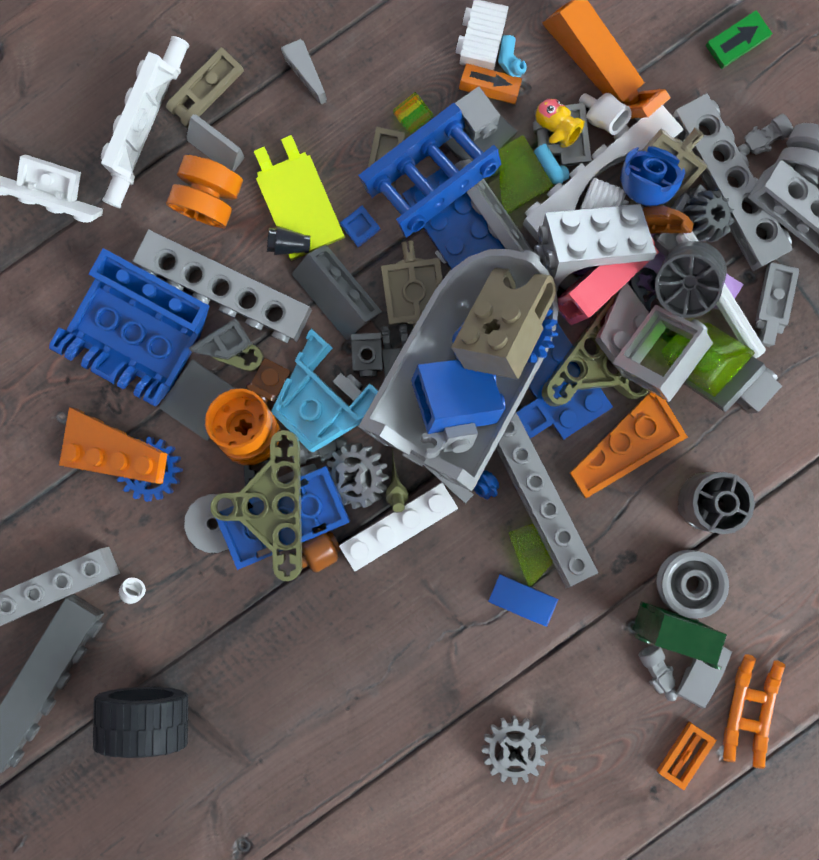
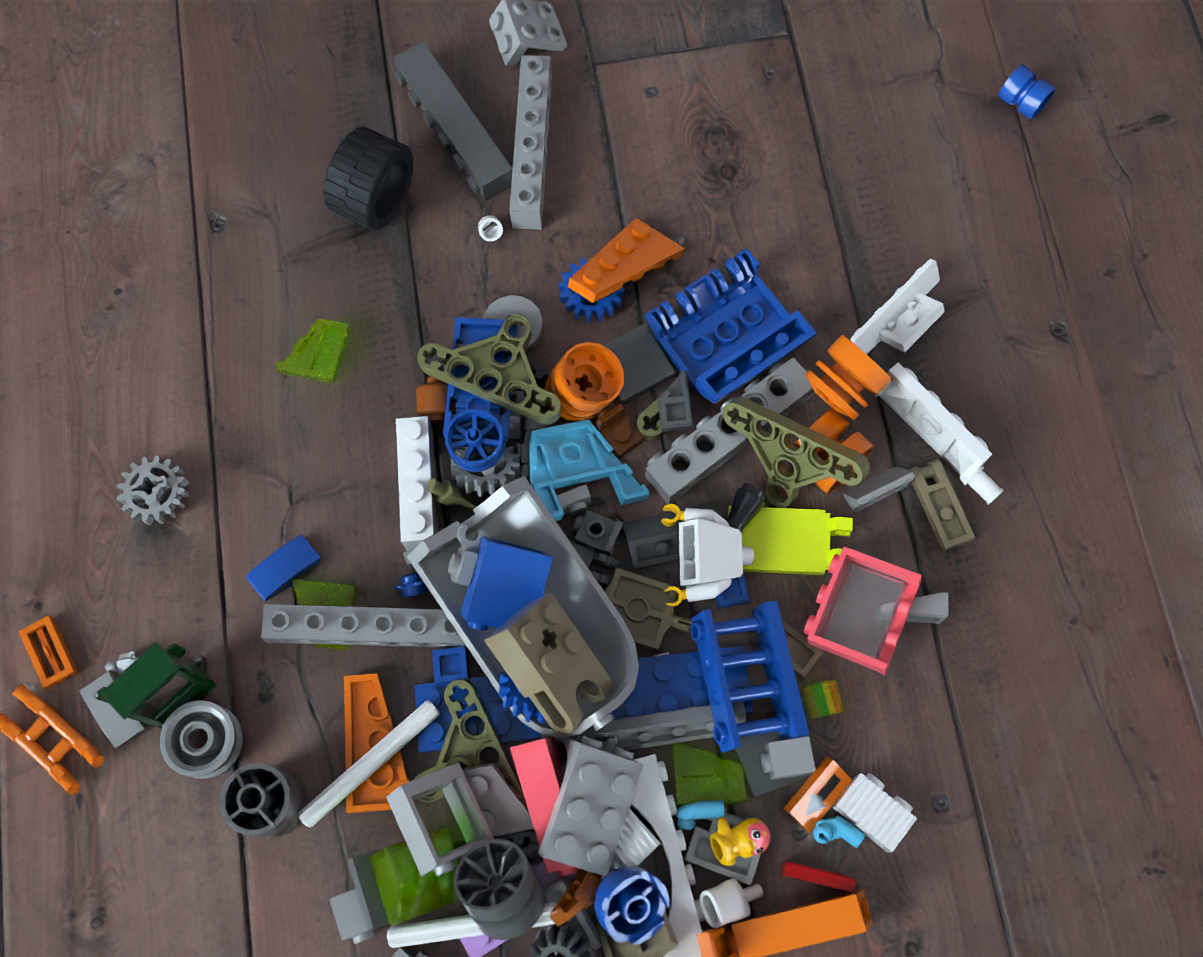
camera: 115 degrees right, 15 degrees down
(136, 199) = (847, 377): none -> orange wheel
(228, 202) = (776, 446): none -> olive beam
(323, 679) = (317, 353): none -> clear neon green wing
(331, 106) = (862, 609): none -> window
(343, 488) = (475, 440): none -> blue wheel
(346, 248) = (708, 553): none -> white torso
(553, 56) = (818, 876): none -> red tile
(644, 438) = (368, 764): none -> white axle

